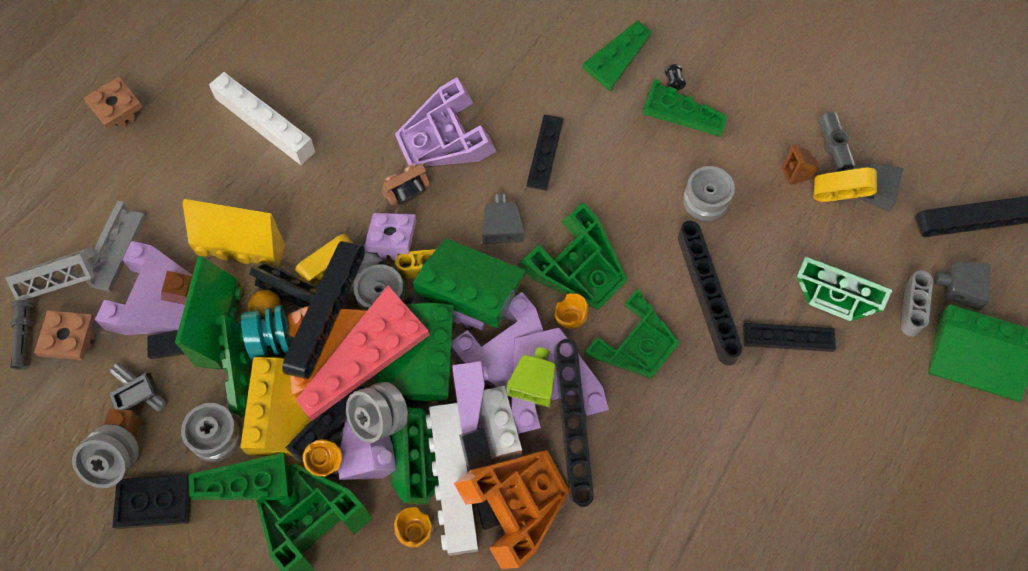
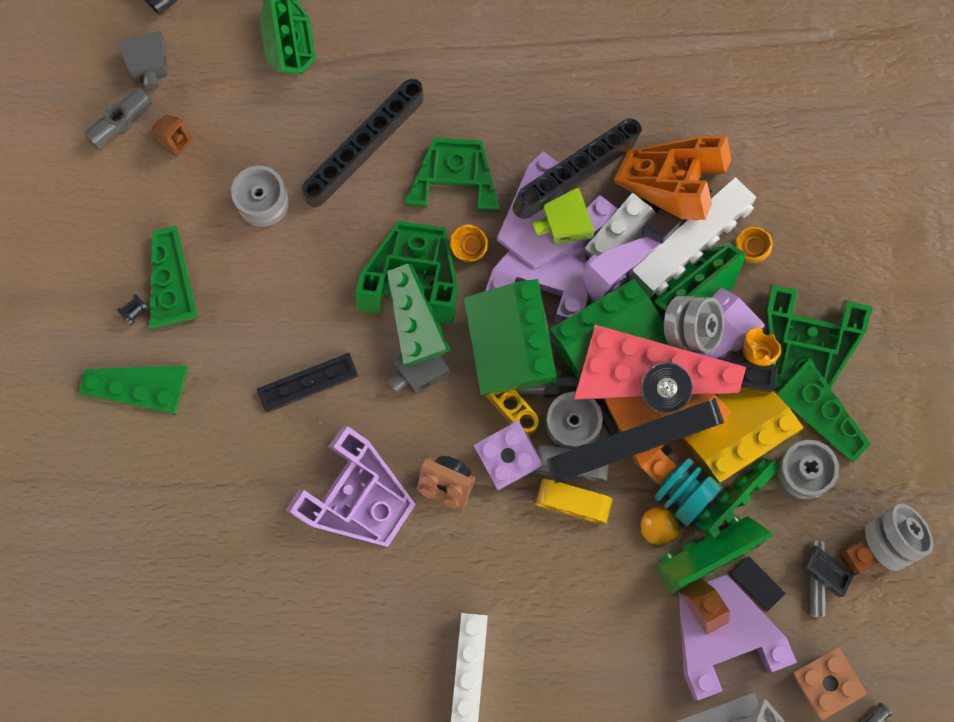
camera: 120 degrees left, 10 degrees up
(151, 501) = (895, 476): black tile -> none
(232, 233) = (619, 601): yellow slope -> none
(283, 283) = (627, 508): black fence -> none
(340, 346) = (666, 387): none -> black tile
(539, 230) = (416, 326): none -> wing
(789, 337) = (361, 57): black tile -> none
(845, 184) = (170, 81): yellow beam -> none

